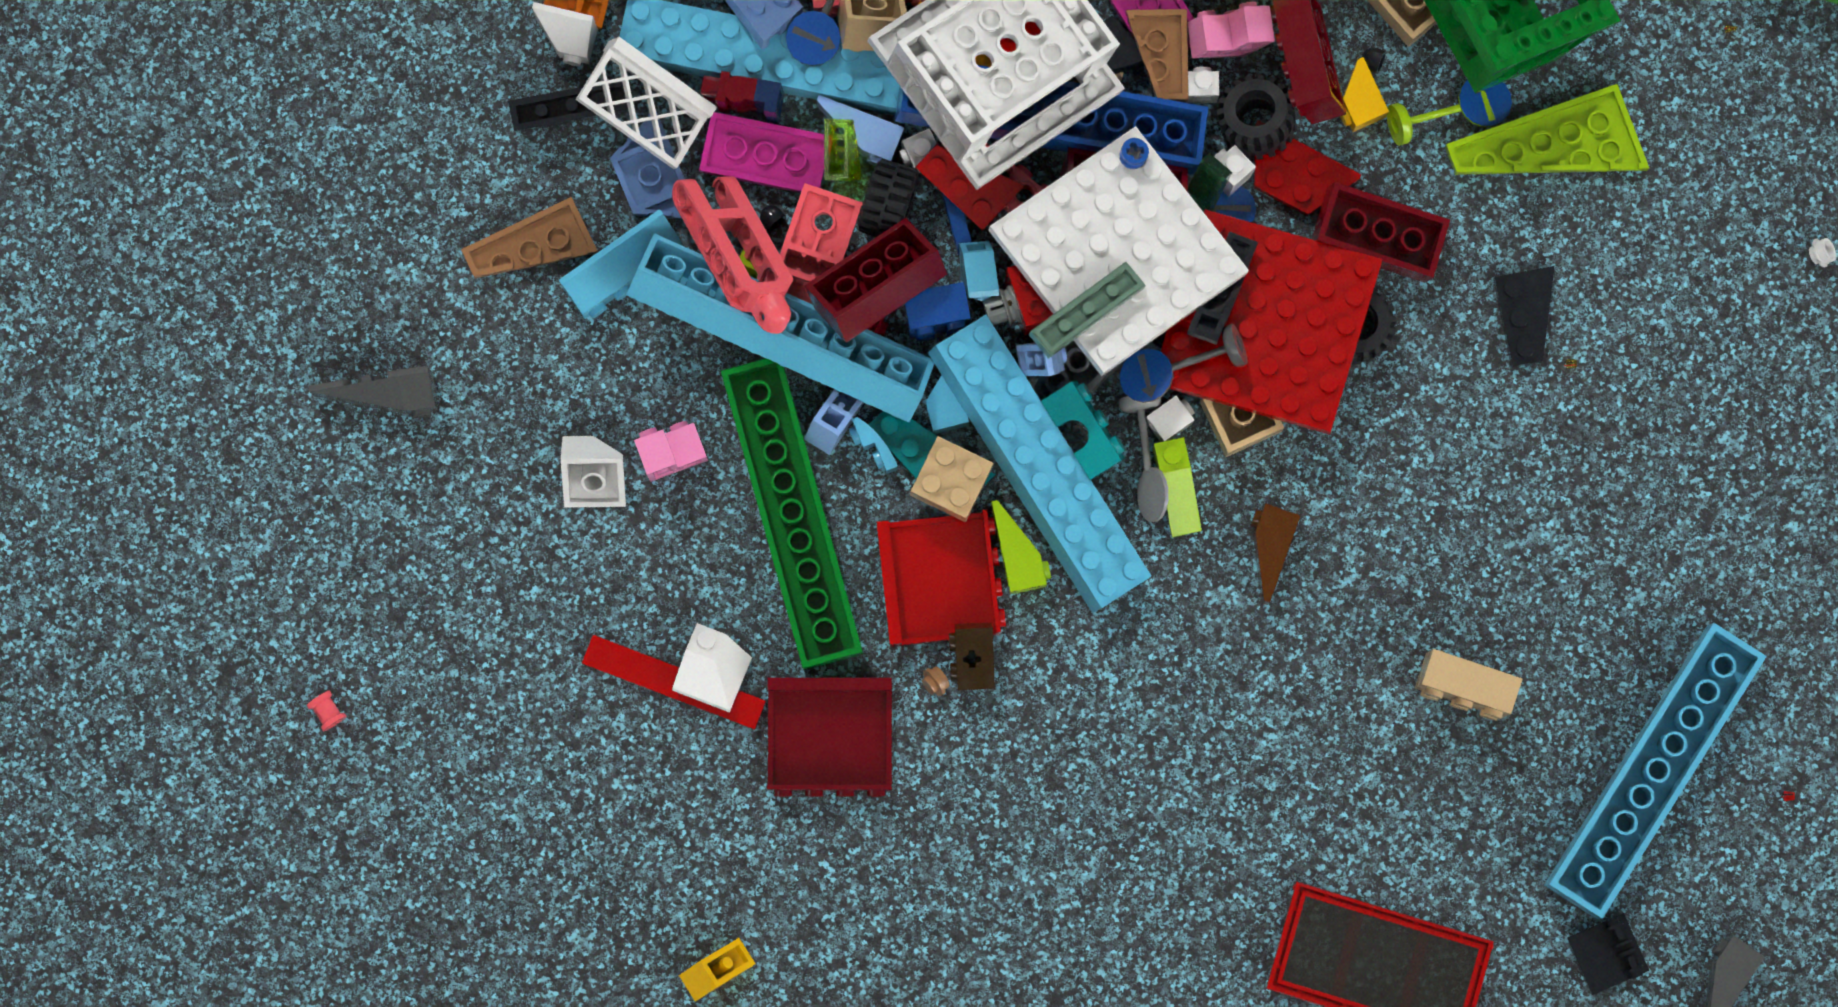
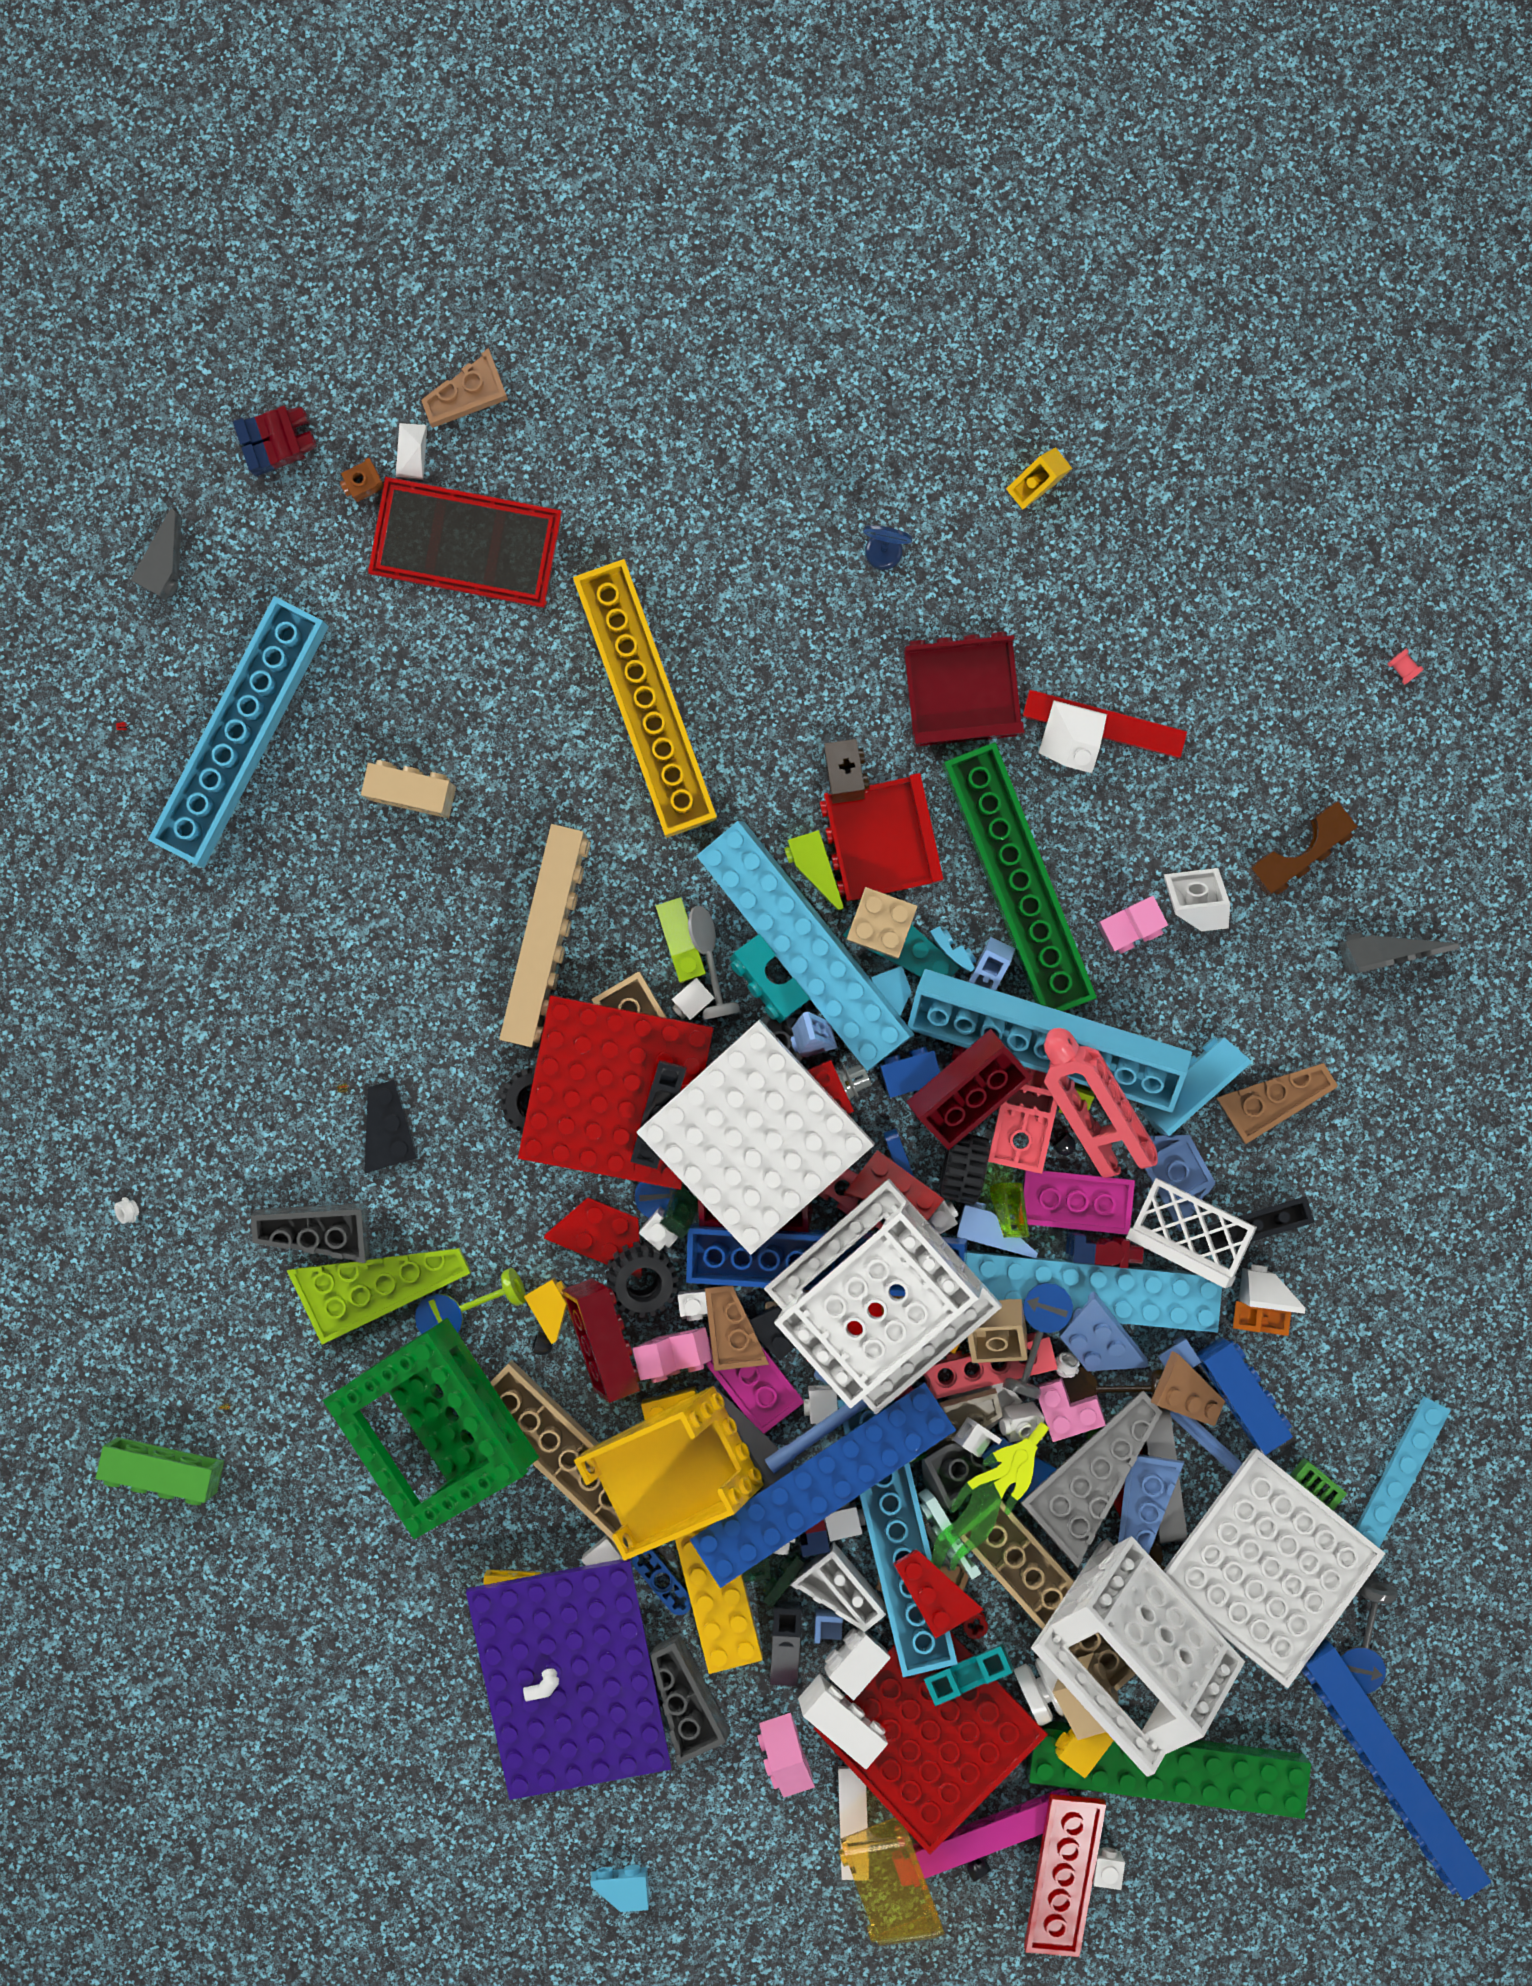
camera: 175 degrees right, 5 degrees up
(434, 535) = (1328, 828): none -> reddish brown arch
(902, 906) = (885, 546): none -> dark blue piece
(935, 681) = (876, 747): medium nougat plate -> none
(978, 270) = (877, 1112): medium azure slope -> none
(1087, 310) = (779, 1075): sand green tile -> none
(1139, 146) = (746, 1234): blue bush -> none
(1150, 373) = (713, 1033): piece -> none
(1191, 761) = (645, 698): none -> yellow brick
(1271, 542) = (592, 901): reddish brown slope -> none
(1330, 505) = (544, 935): none -> tan brick
(1382, 228) = (521, 1186): dark red brick -> none
(1608, 954) = (267, 572): black hinge -> none
(1614, 209) = (322, 1229): none -> dark grey wedge

